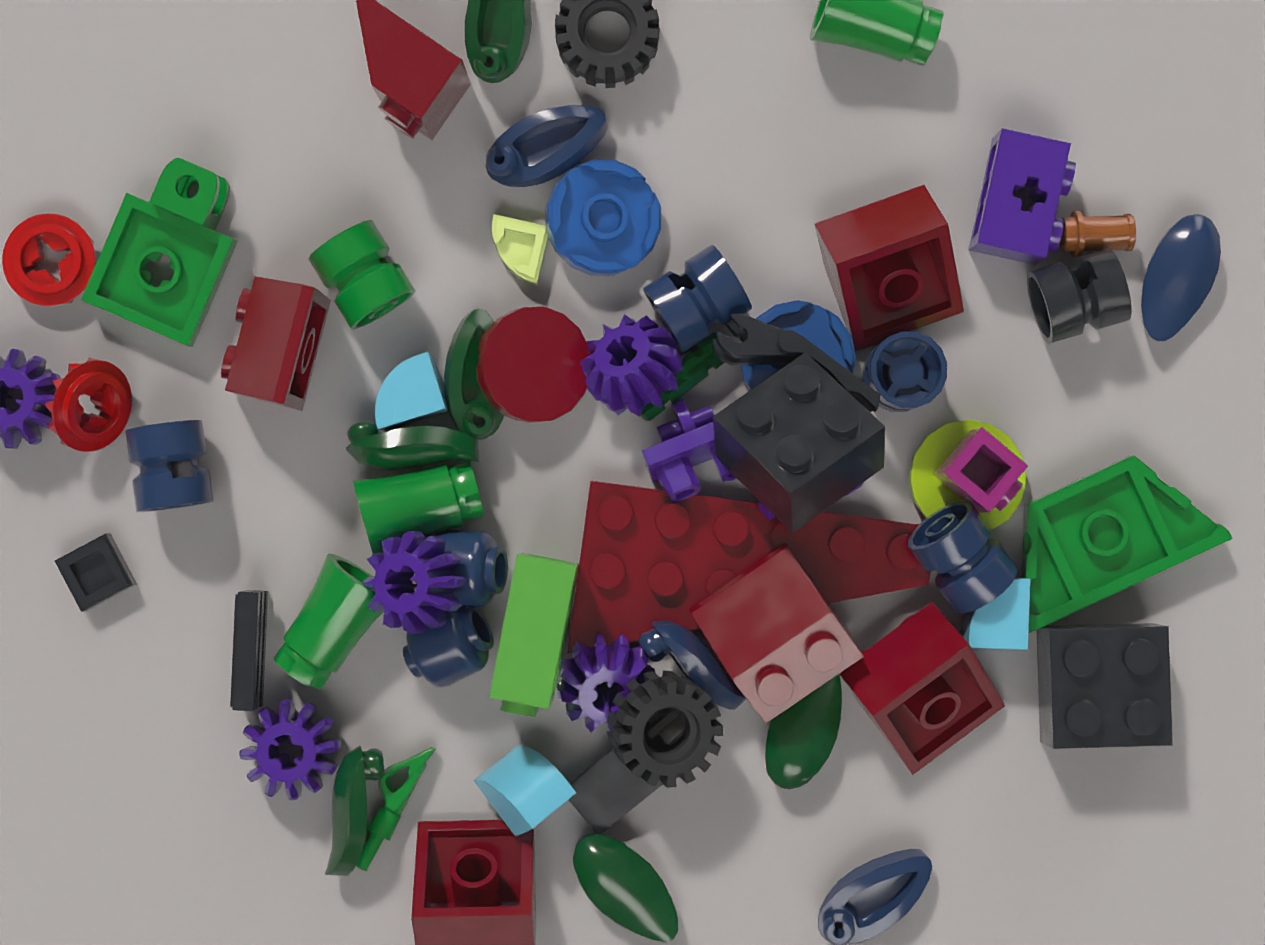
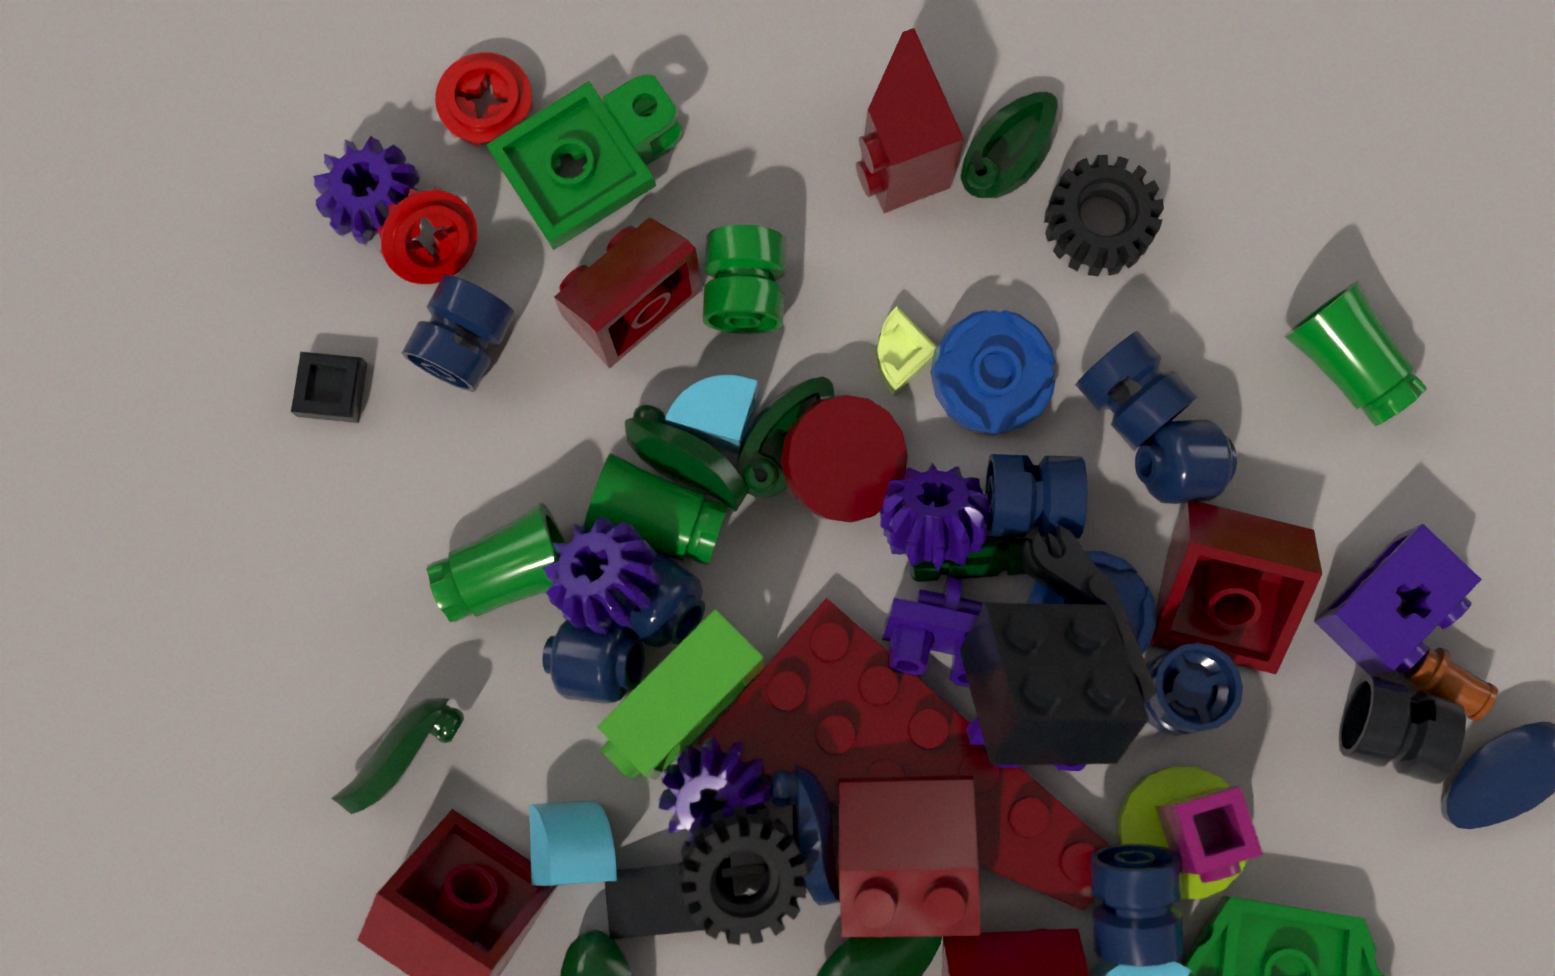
camera: 35 degrees right, 10 degrees down
(249, 650) = (411, 543): black tile -> none
(278, 765) = (362, 670): dark purple gear -> none
(395, 800) = (431, 783): green hand -> none
(545, 145) = (983, 276): dark blue arm -> none
(743, 158) = (1157, 402): none -> dark blue wheel
(794, 194) = (1186, 462): none -> dark blue head

